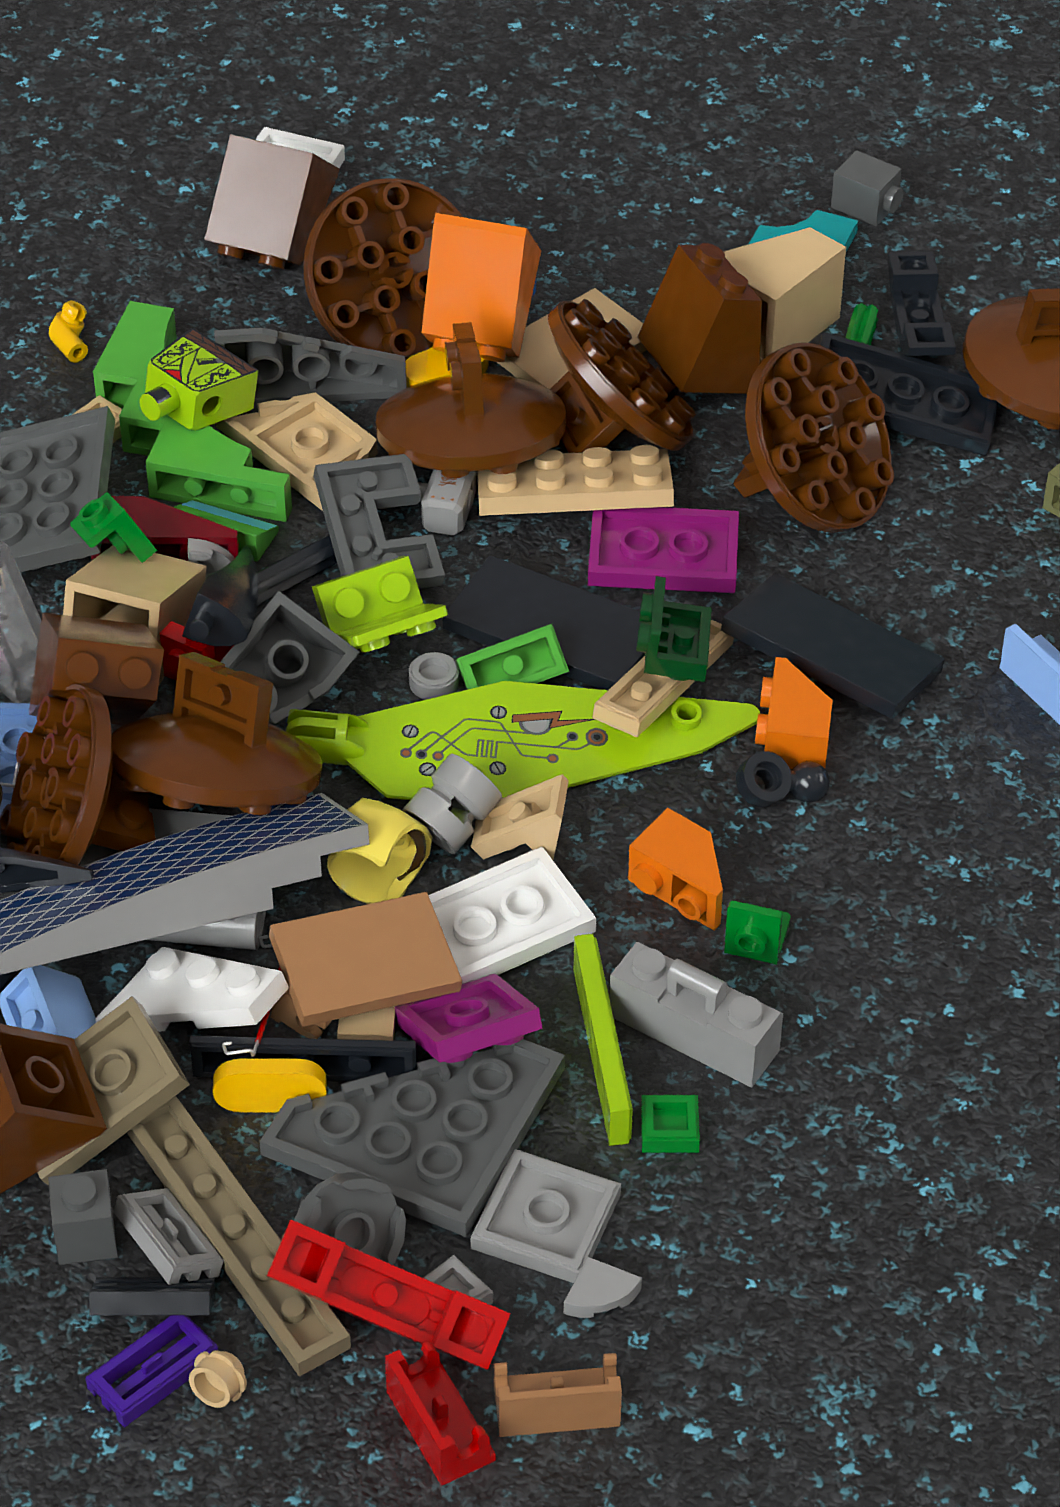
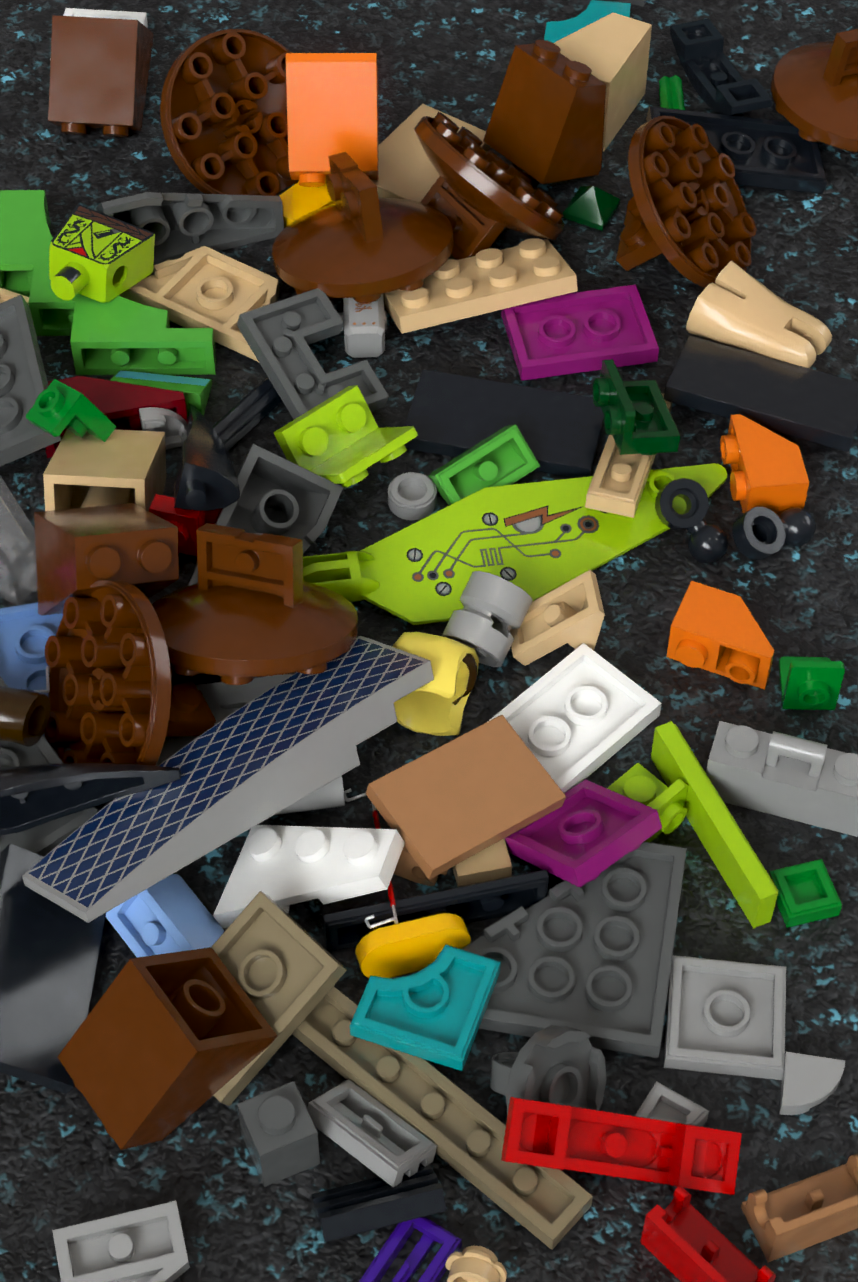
camera: 15 degrees left, 5 degrees up
(262, 1142) = (429, 1011): none -> teal tile
(560, 1009) = (647, 789): none -> lime bracket
(710, 777) = (706, 541): none -> black plate
(727, 426) = (591, 207): none -> dark green slope
(849, 568) = (755, 319): none -> tan piece

